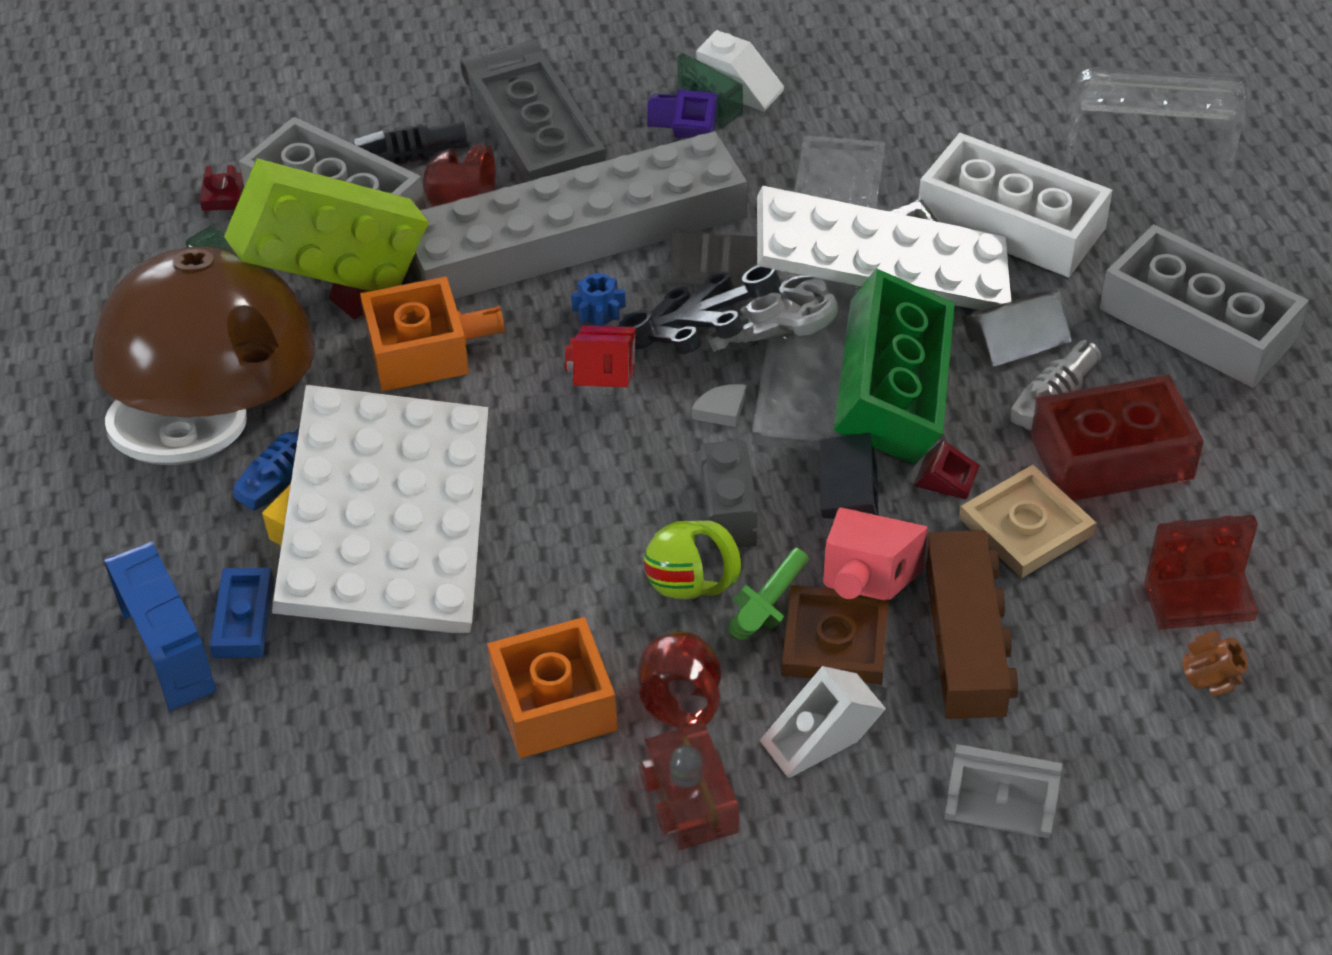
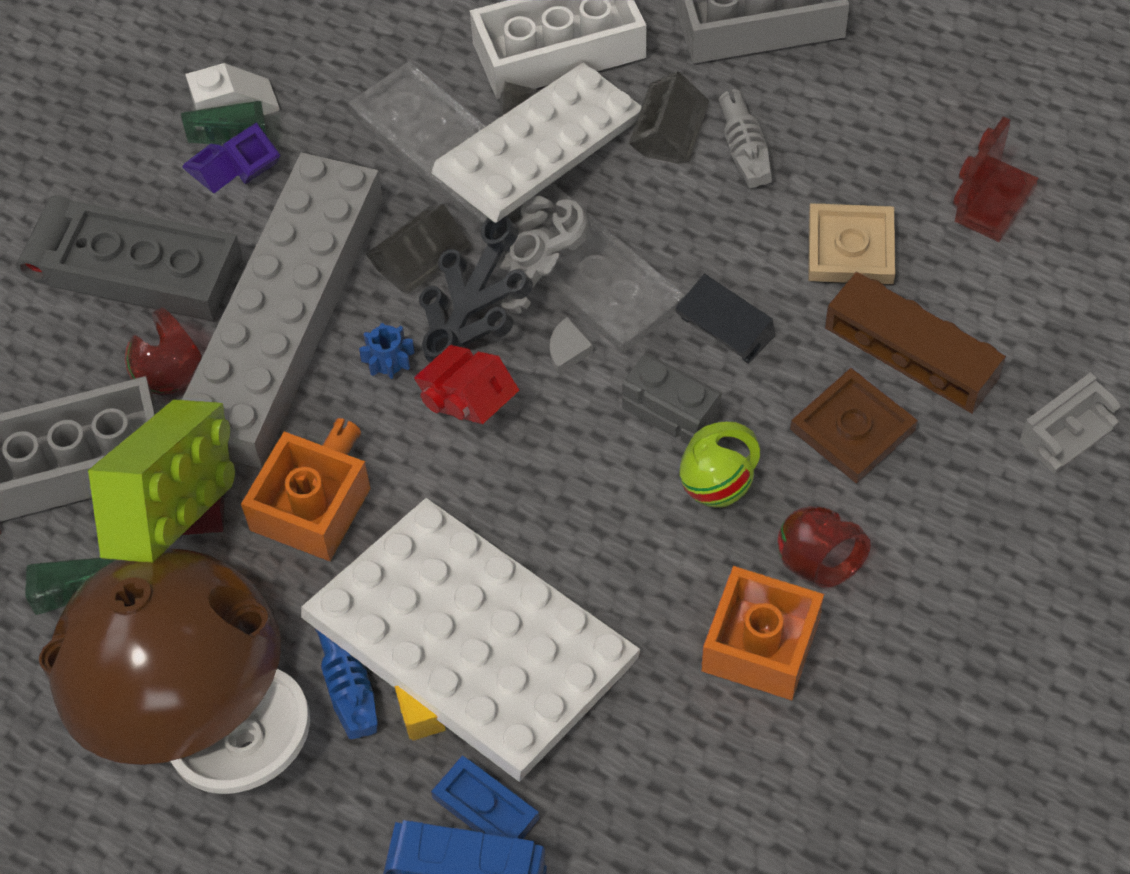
camera: 50 degrees left, 10 degrees up
(414, 141) = (65, 360): black hinge -> none
(691, 786) = (918, 604): clear red piece -> none
(758, 607) = (797, 461): bright green arm -> none
(822, 720) = (928, 488): white slope -> none
(872, 555) = (811, 354): coral torso -> none
(895, 366) = (655, 213): green brick -> none
(947, 471) = (758, 258): dark red slope -> none
(1116, 437) = (834, 140): clear red brick -> none
(1215, 663) = (1067, 232): dark orange gear -> none

